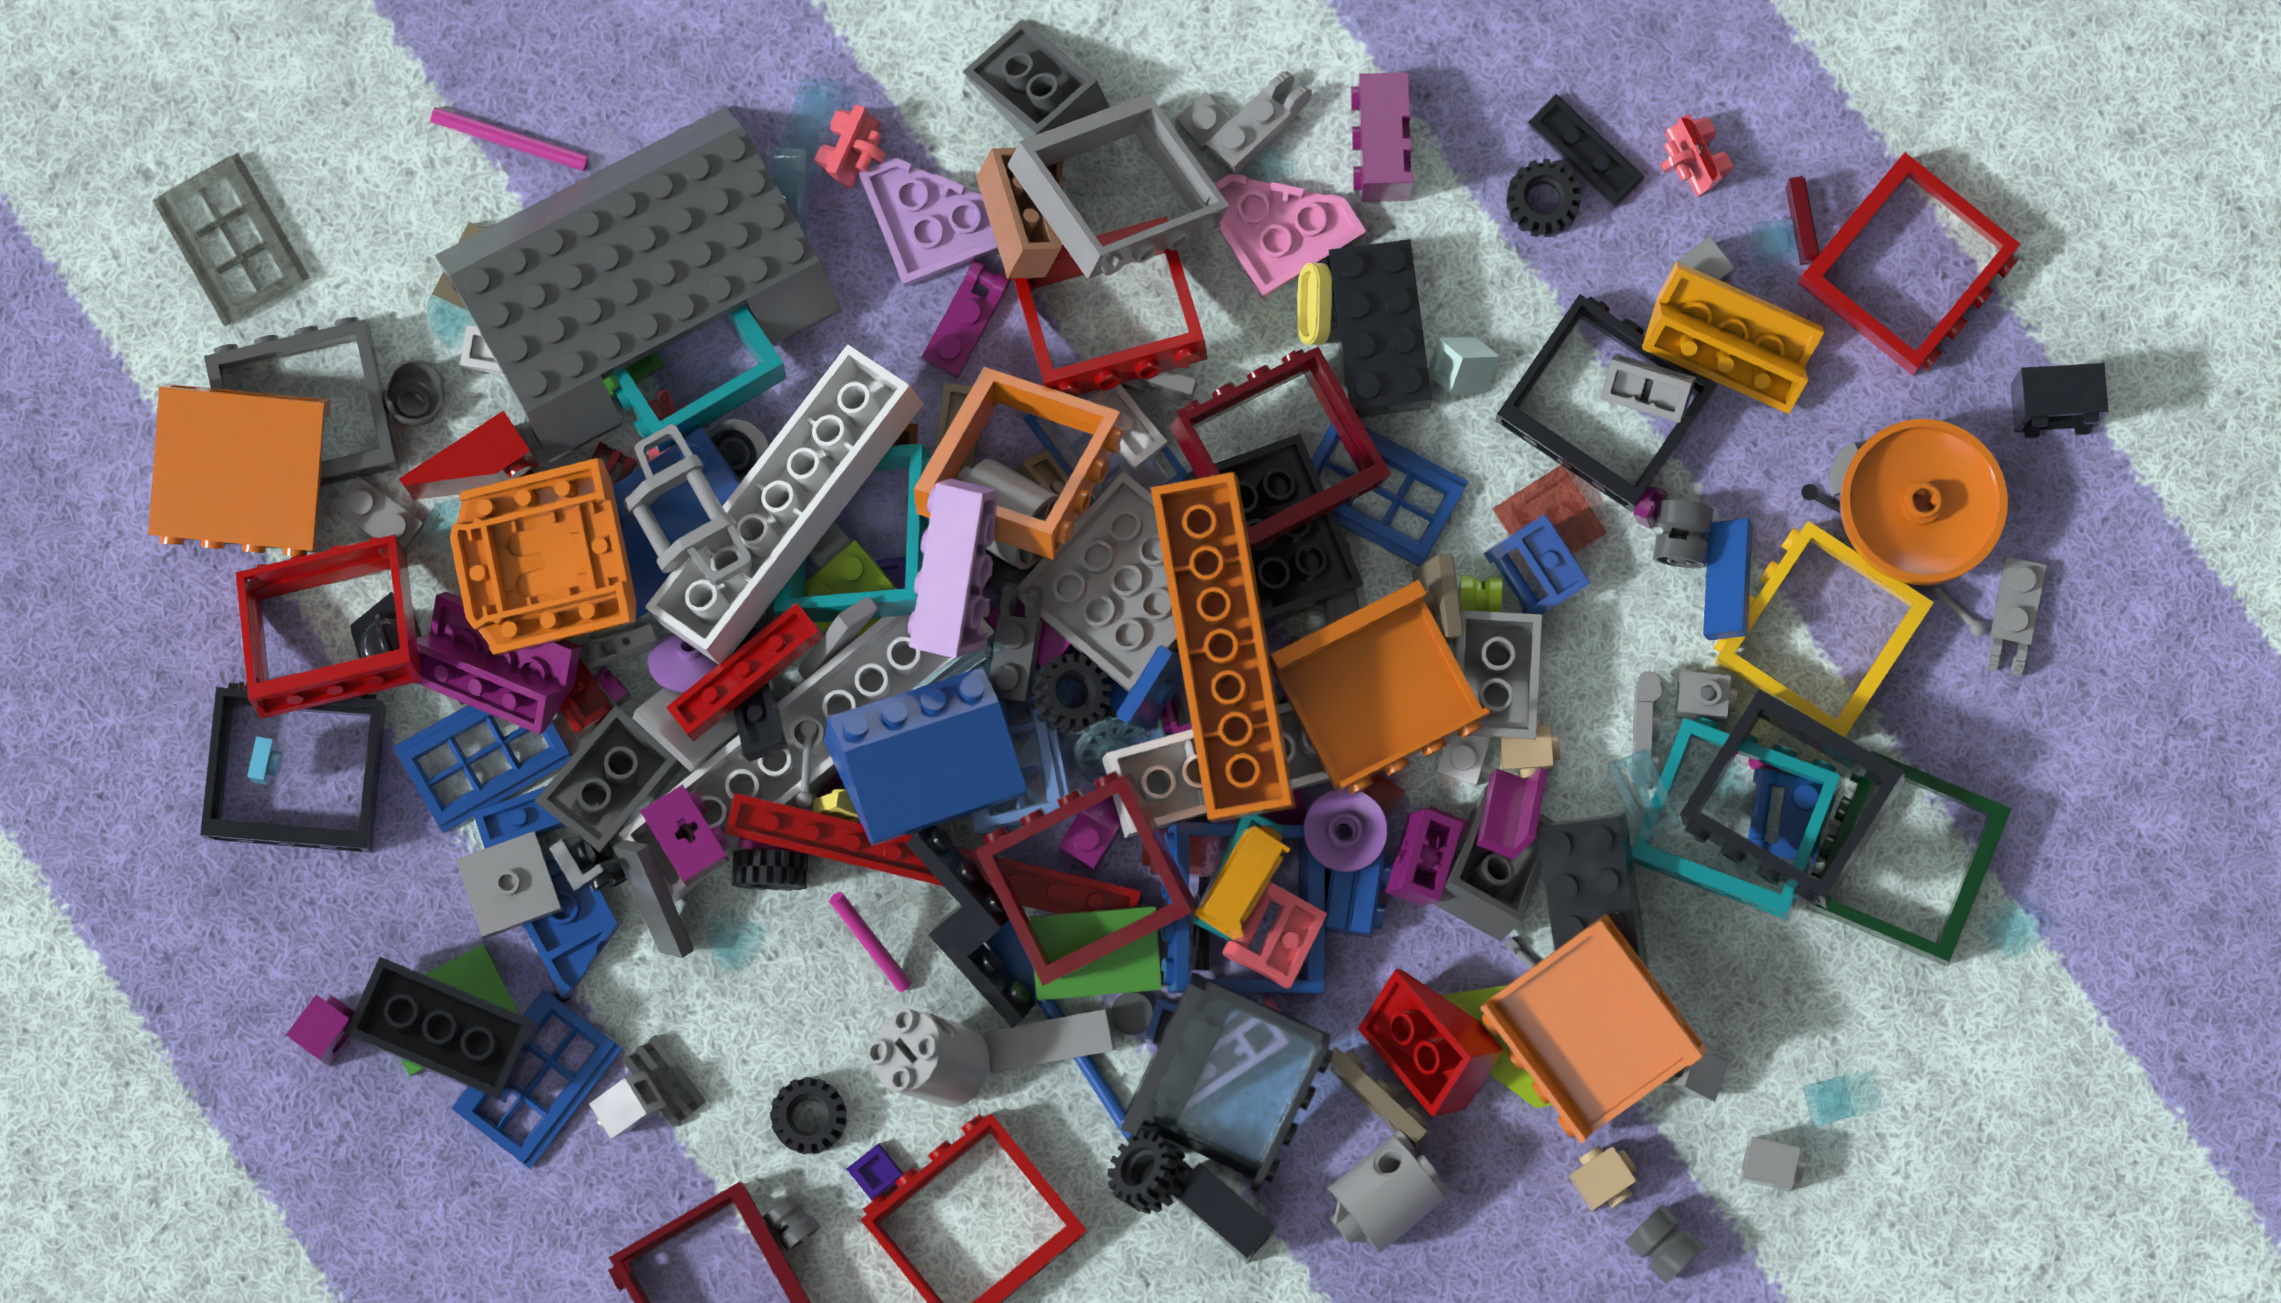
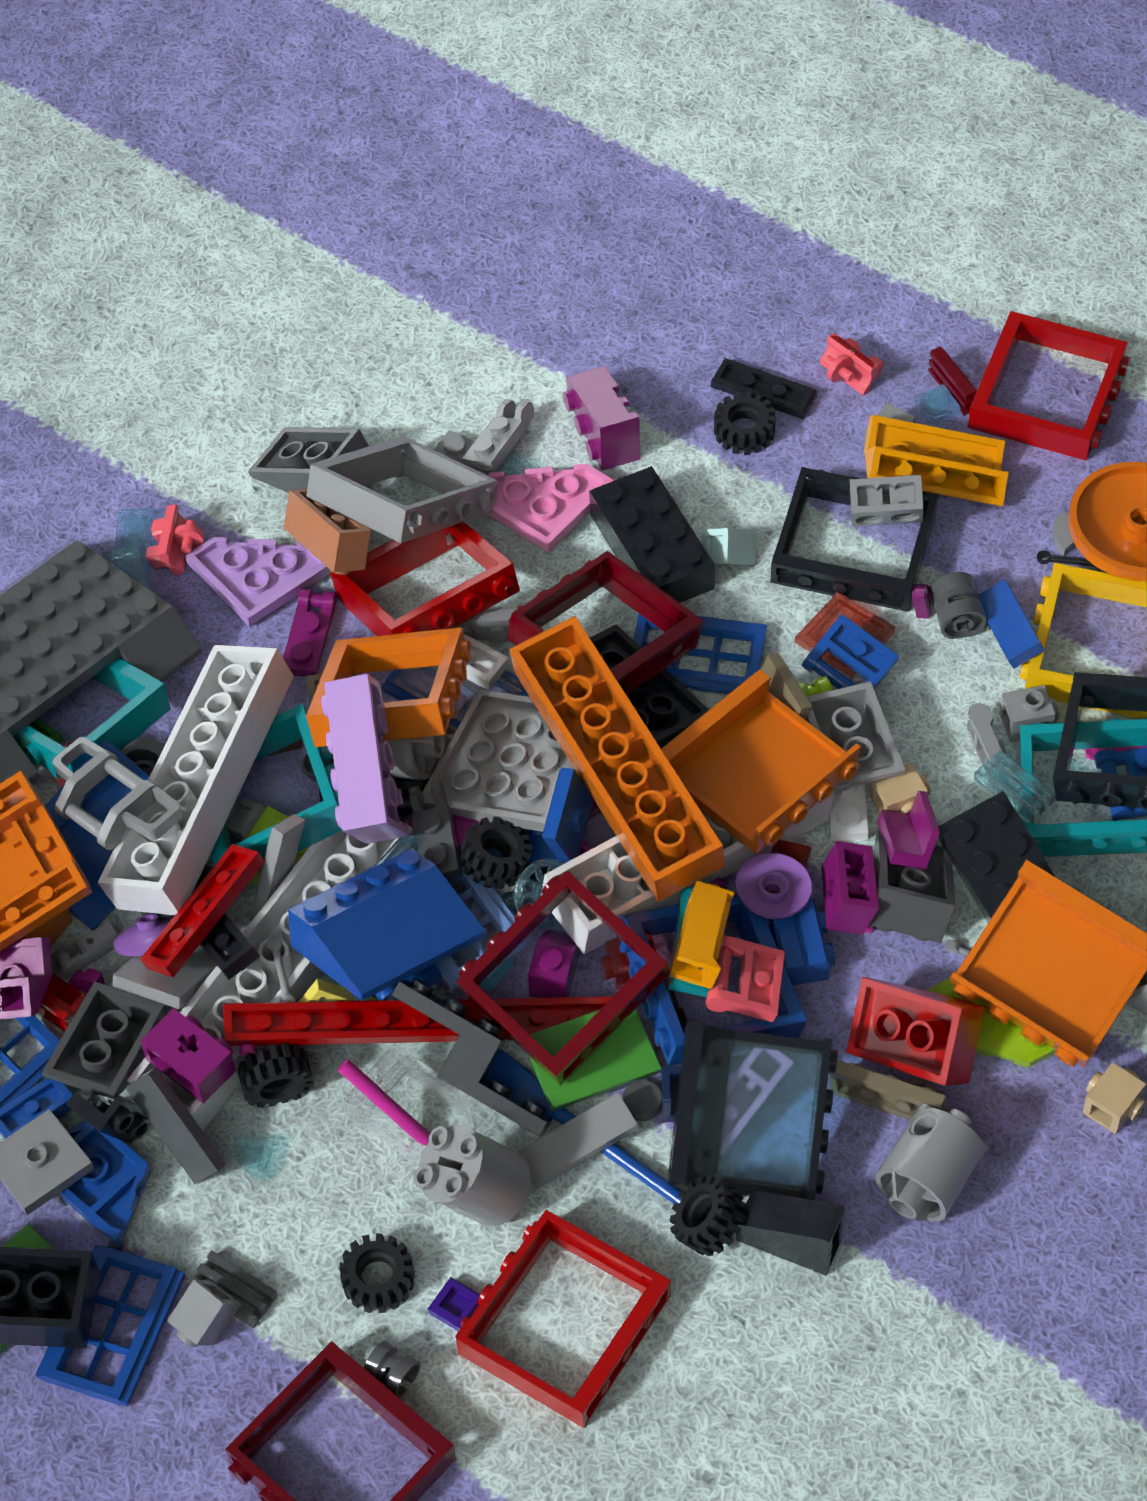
camera: 20 degrees left, 25 degrees down
(1314, 303) = (590, 532): light yellow tile -> none

